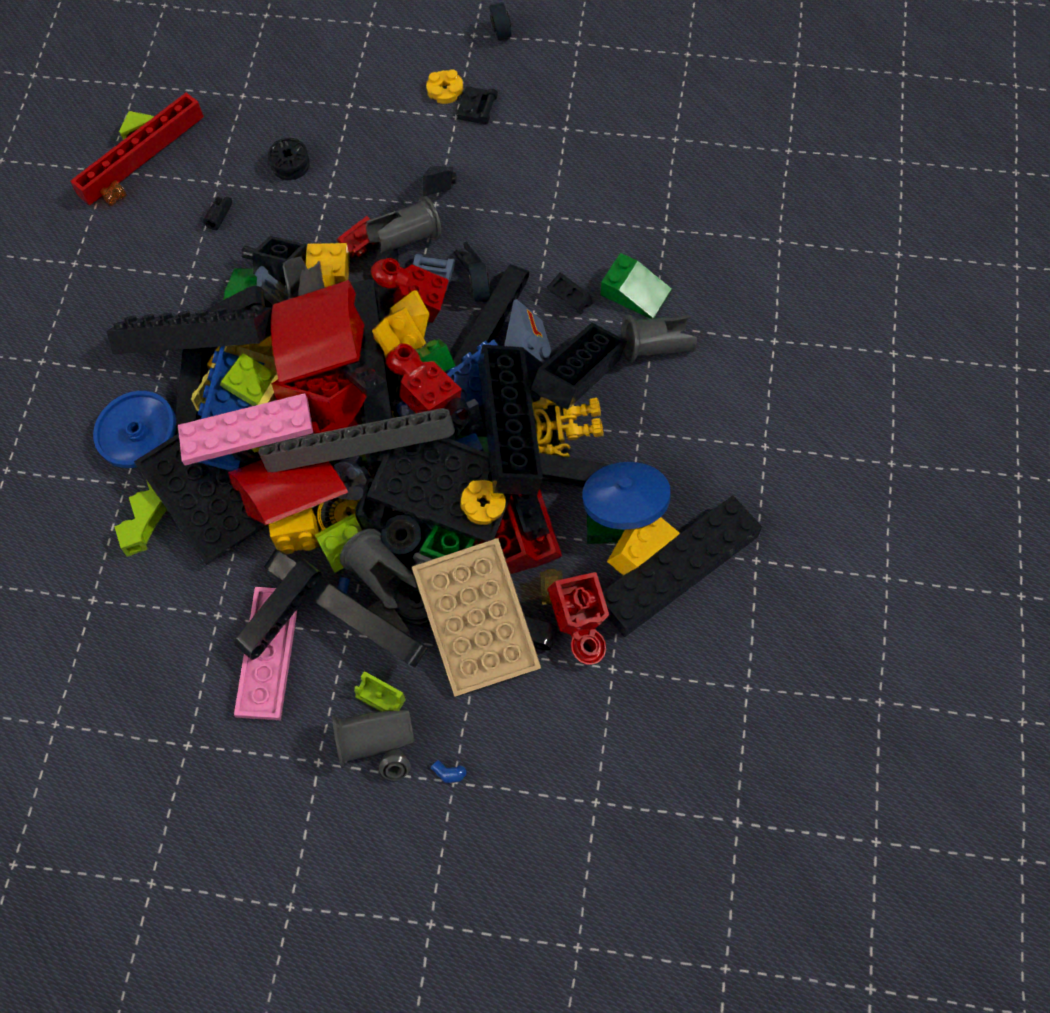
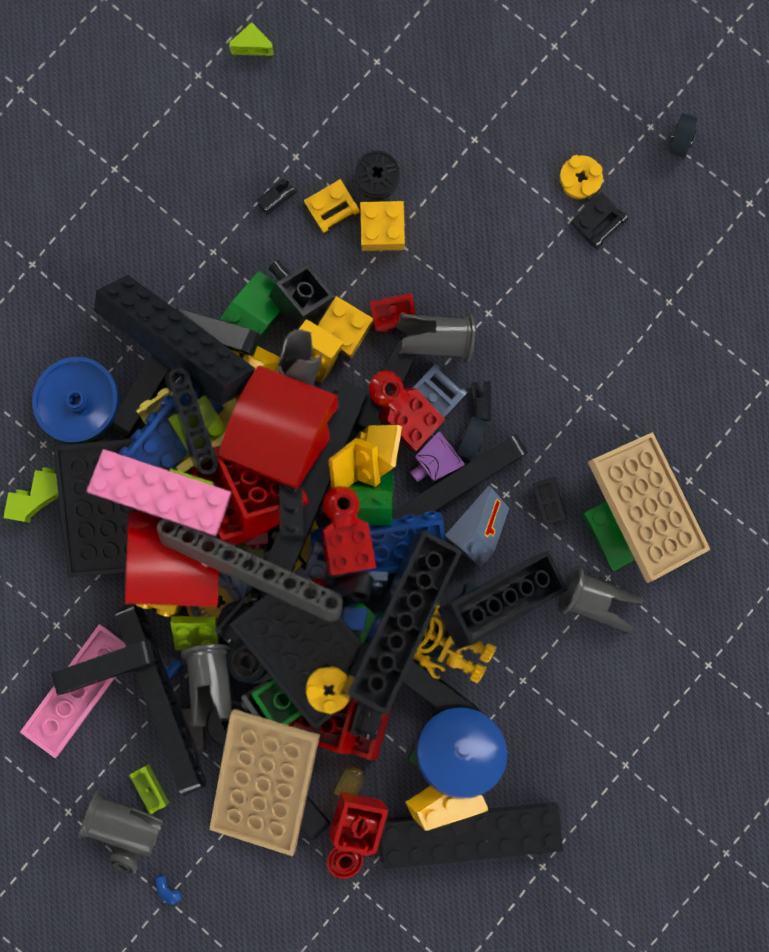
camera: 30 degrees right, 20 degrees up
(113, 193) = (188, 111): clear orange wheel -> none
(137, 148) = (238, 73): red brick -> none
(238, 360) = (199, 428): none -> black beam
(262, 194) = (328, 200): none -> yellow plate
(273, 290) = (271, 331): sand blue plate -> none
(314, 187) = (382, 226): none -> yellow brick
(438, 179) = (502, 298): black slope -> none
(461, 314) = (436, 460): none -> medium lavender torso
(646, 251) = (649, 507): none -> tan plate

